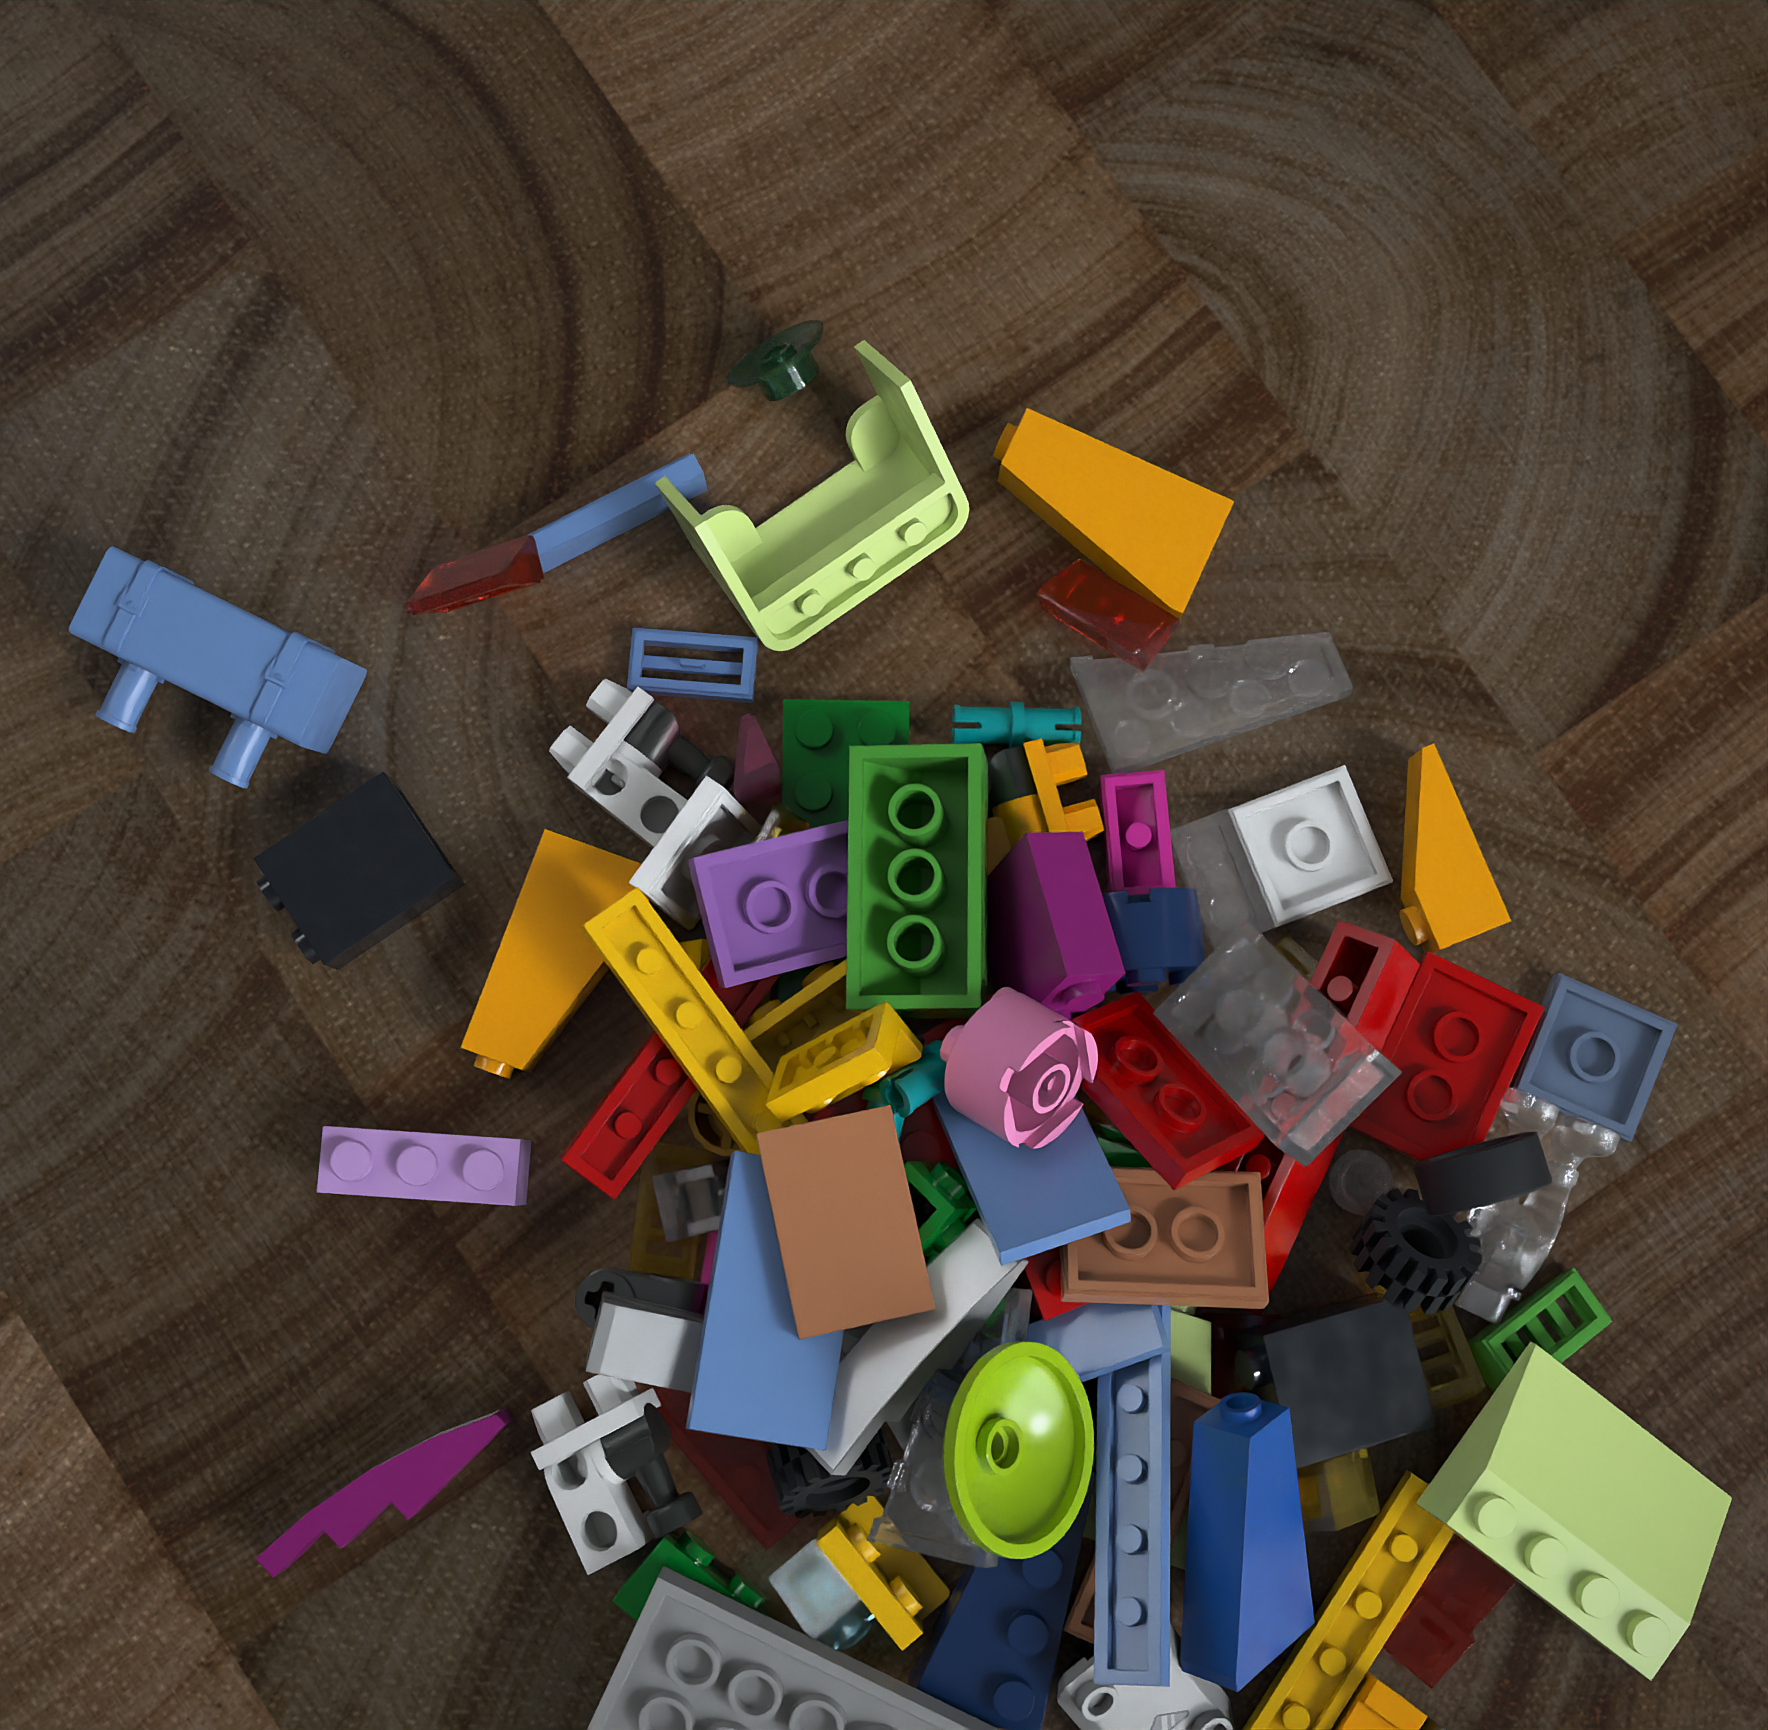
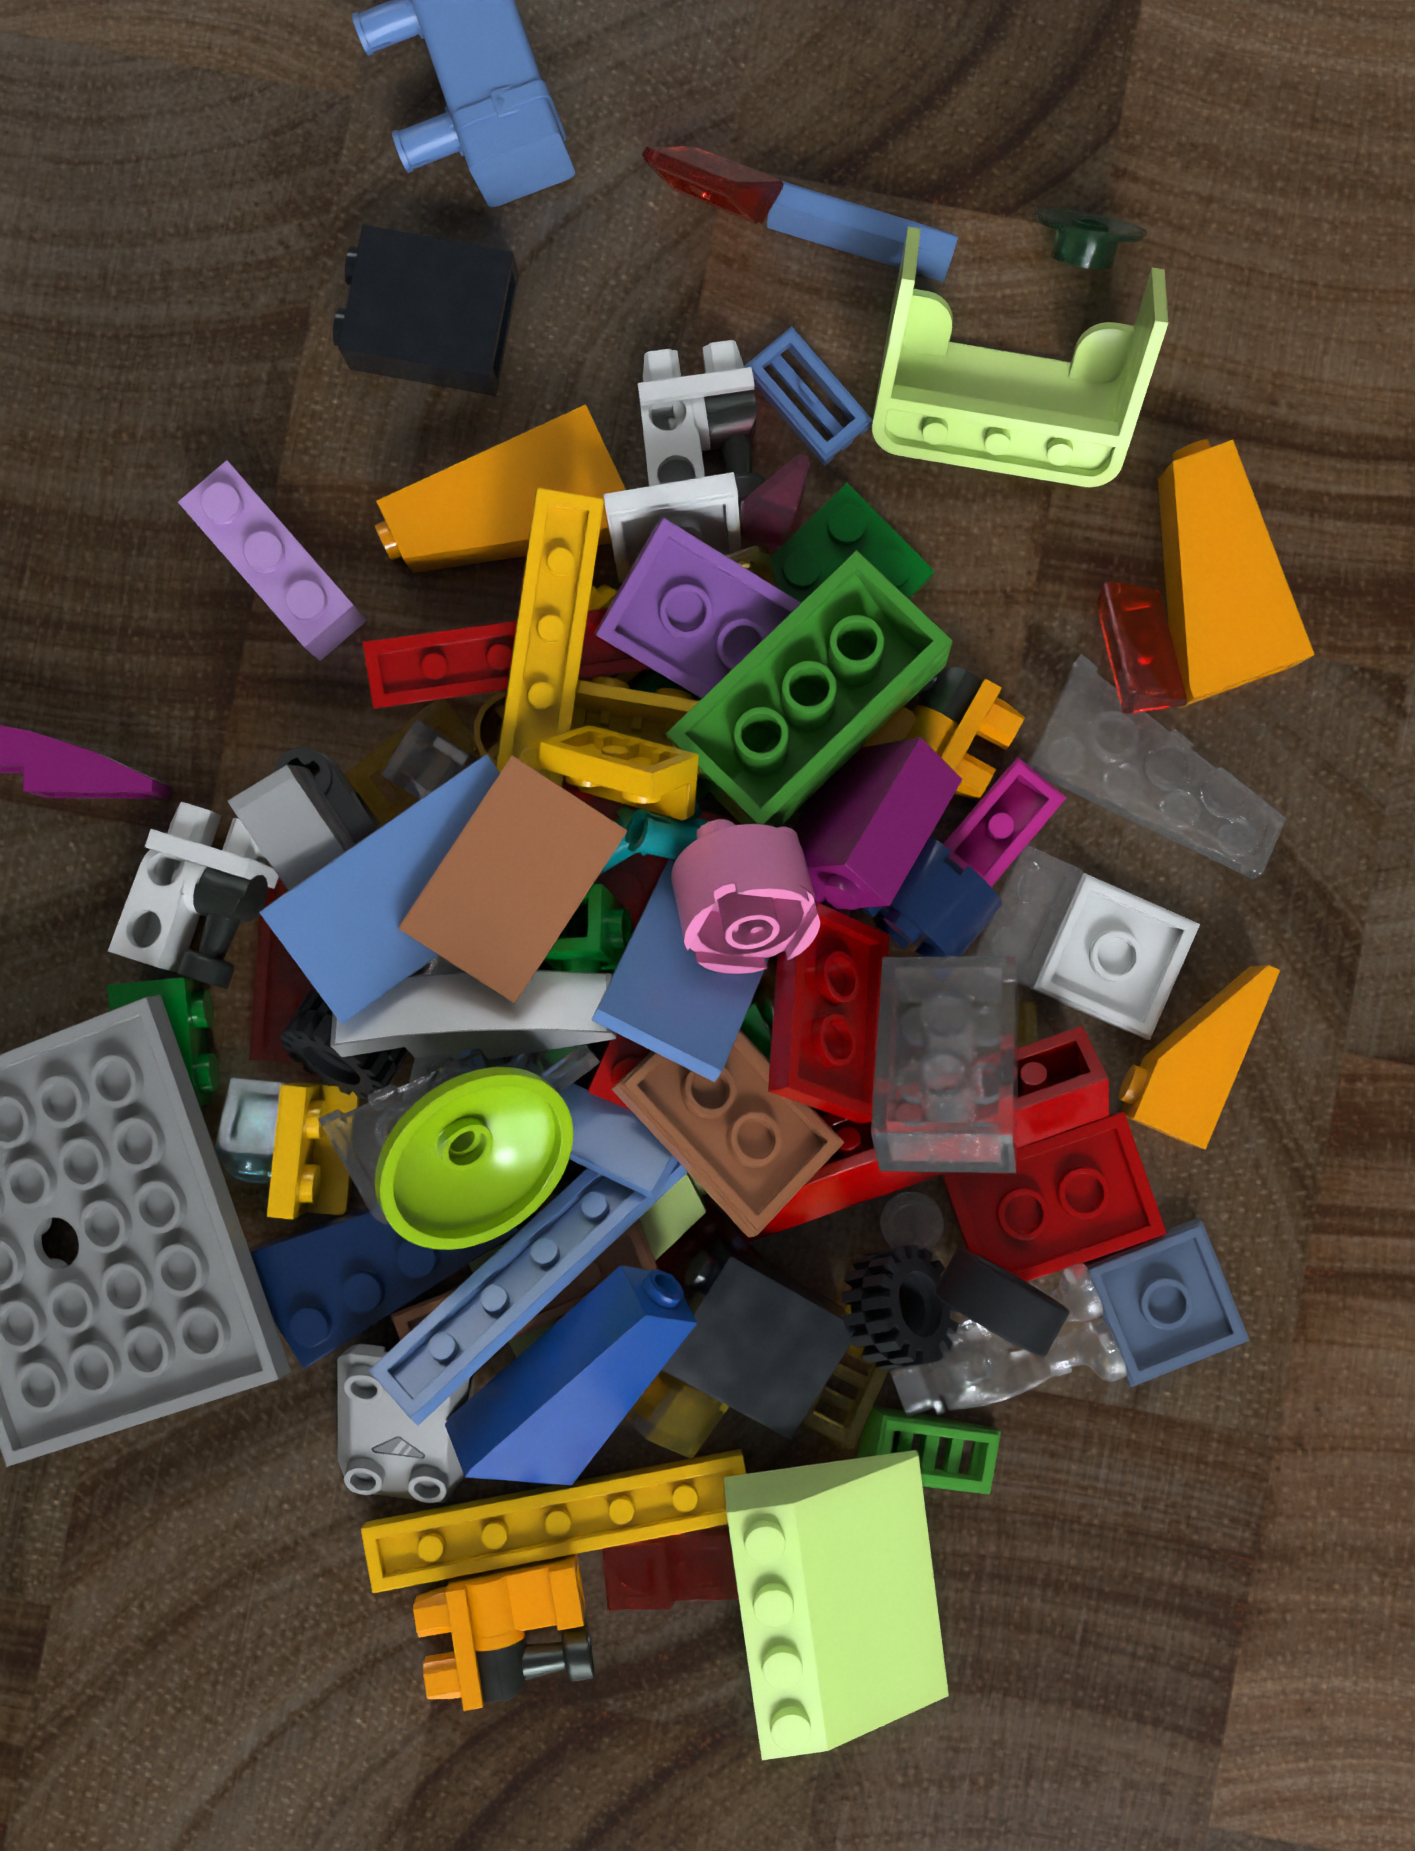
camera: 45 degrees right, 5 degrees up
(1014, 725) = (994, 662): teal pin -> none

